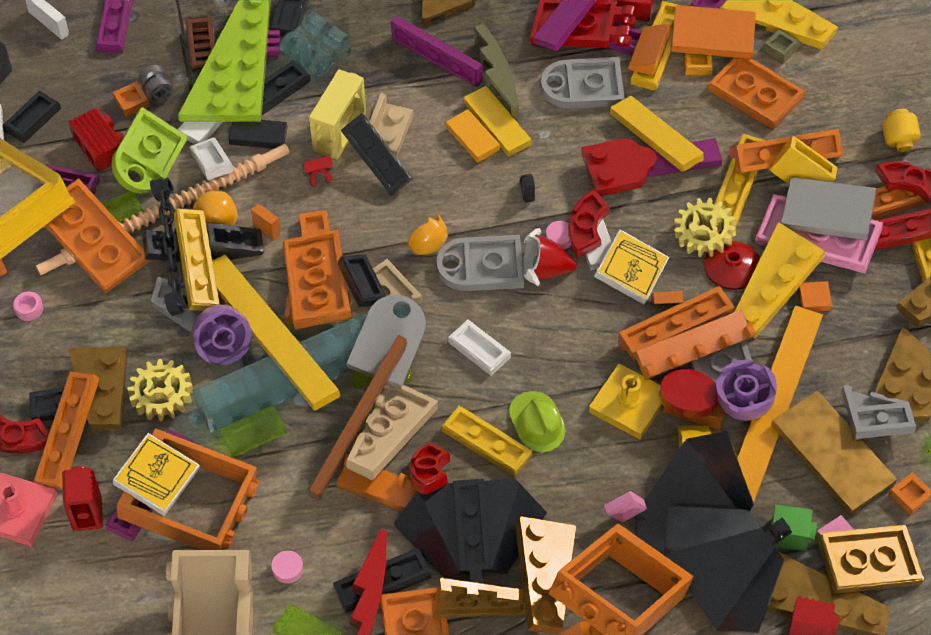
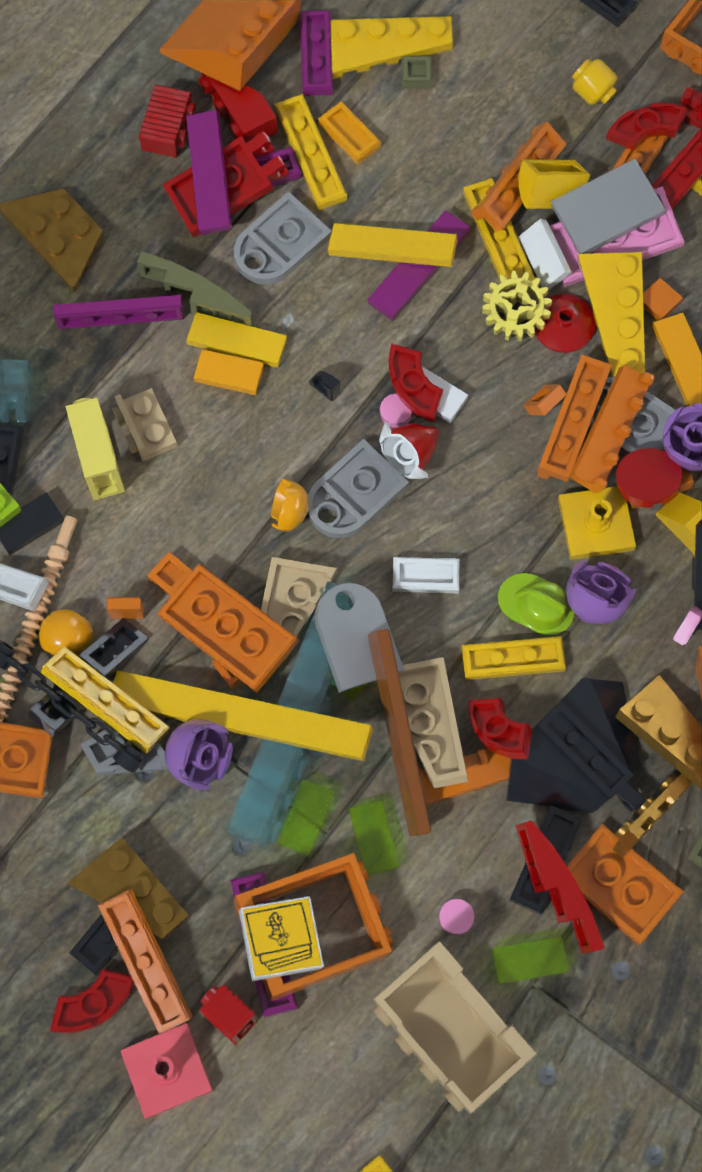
camera: 40 degrees left, 15 degrees up
(160, 390) = (173, 850): light yellow gear -> none
(283, 477) = (374, 838): none -> clear neon green tile
(317, 167) = (119, 516): red tile -> none
(361, 279) = (274, 597): black tile -> none
(376, 154) = (167, 461): black tile -> none
(580, 437) = (598, 592): none -> medium lavender cylinder
(617, 165) = (389, 303): red plate -> none
(631, 267) = (488, 393): yellow tile -> none
(649, 49) = (312, 163): orange slope -> none
(713, 31) = (351, 103): orange tile -> none
(756, 91) = (435, 134): orange tile -> none
(757, 210) = (544, 254): none -> white tile

